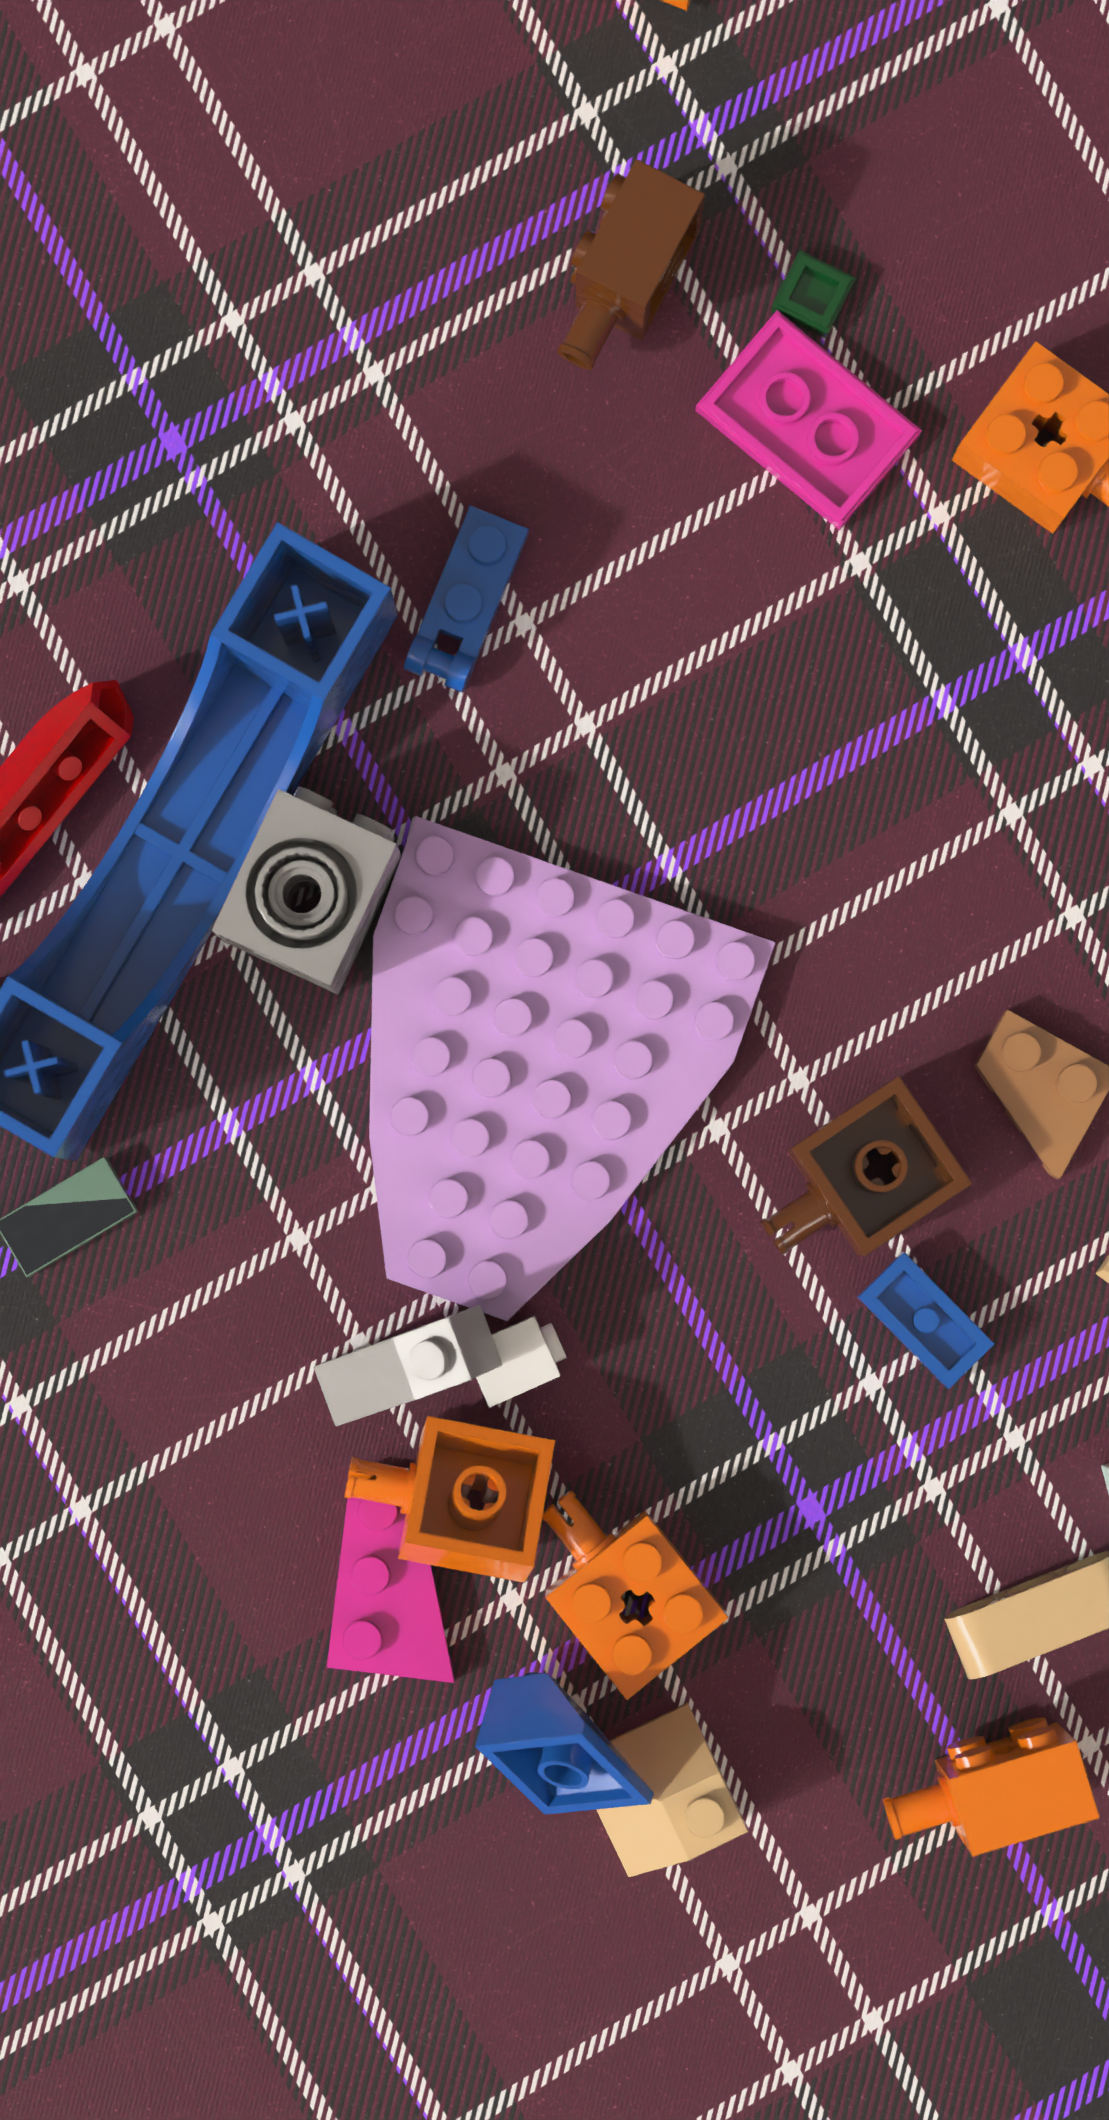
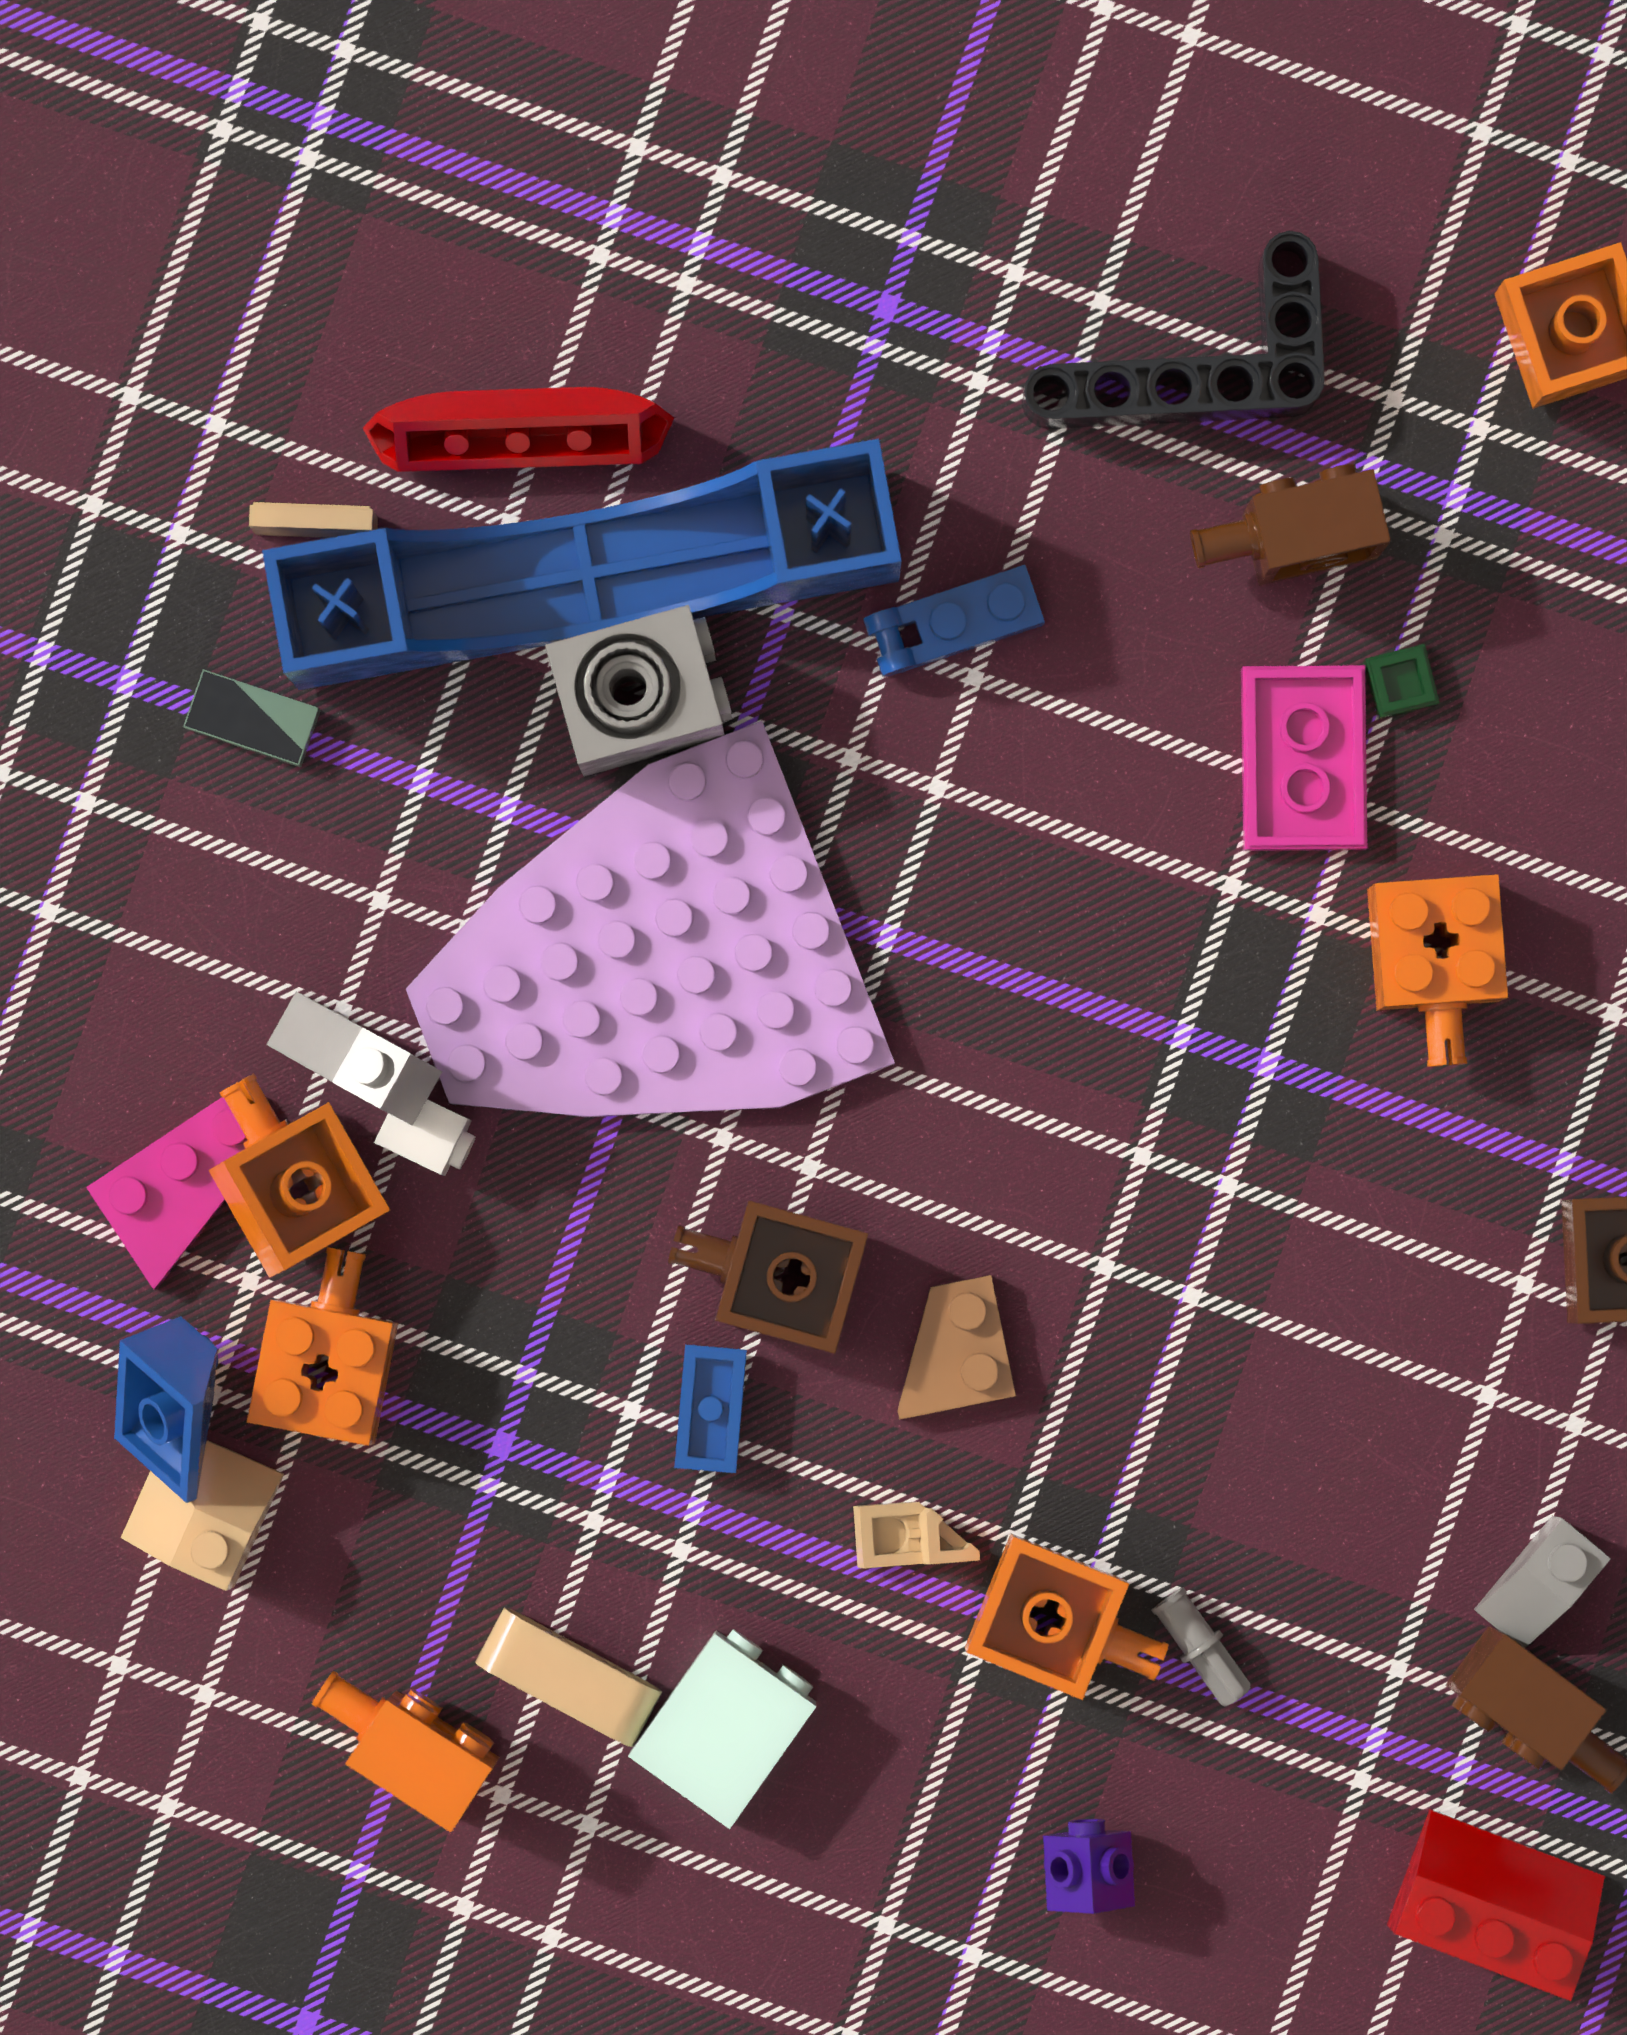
camera: 50 degrees right, 0 degrees up
(439, 240) = (1201, 374): none -> black beam

